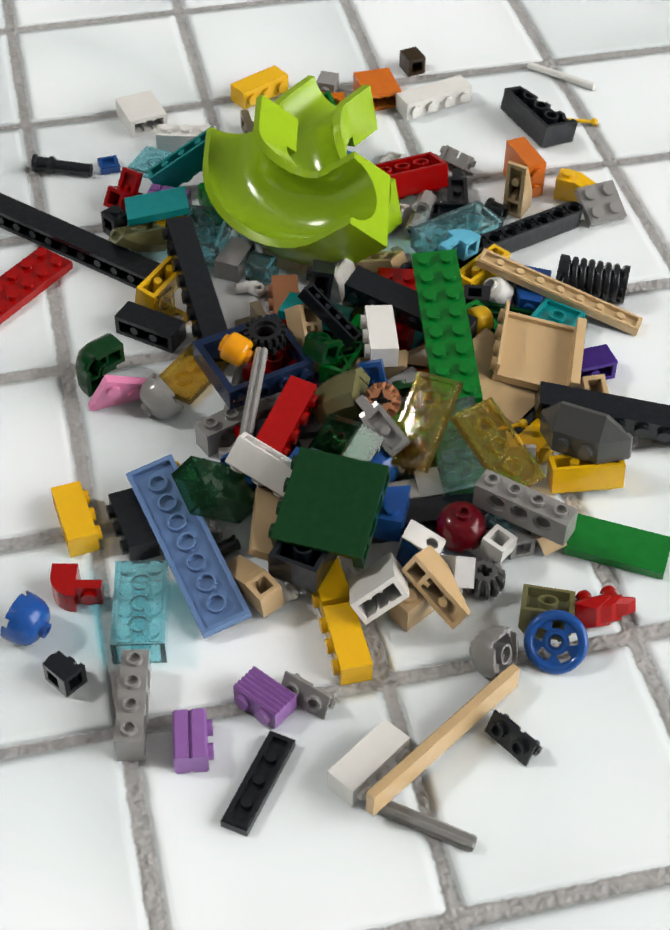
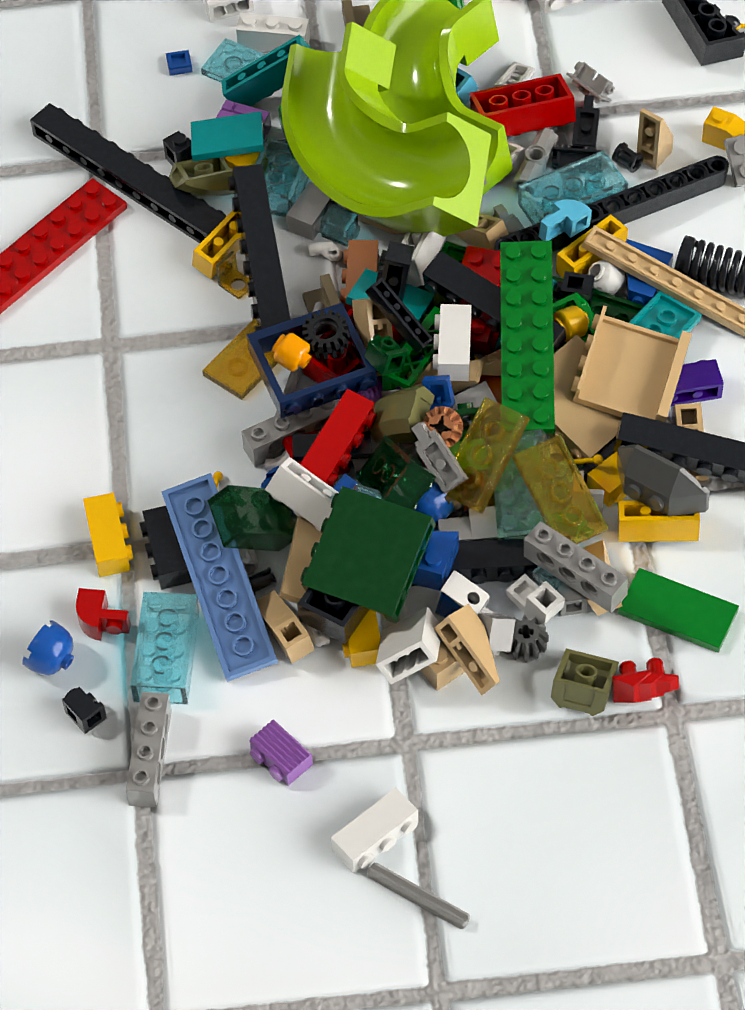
camera: 10 degrees right, 10 degrees up
(53, 165) = (113, 61): black pin -> none
(96, 360) = (142, 342): dark green brick -> none
(115, 391) = (163, 381): bright pink wing -> none
(127, 186) = (194, 108): red brick -> none
(150, 327) = (207, 297): black brick -> none
(158, 399) = (206, 395): light grey cylinder -> none
(190, 741) = (202, 792): medium lavender brick -> none
(254, 390) = (305, 406): light grey axle -> none
(258, 783) = (264, 840): black tile -> none
(309, 697) = (330, 759): light grey hinge -> none
(346, 644) = (369, 701): yellow brick -> none
(441, 740) = (452, 812): tan tile -> none
(461, 526) = (508, 580): dark red cylinder -> none
(494, 650) = (520, 724): light grey cylinder -> none
(510, 737) = (517, 809): black hinge -> none
(523, 153) = (670, 100): orange brick -> none
(552, 664) = (603, 703): blue plate -> none

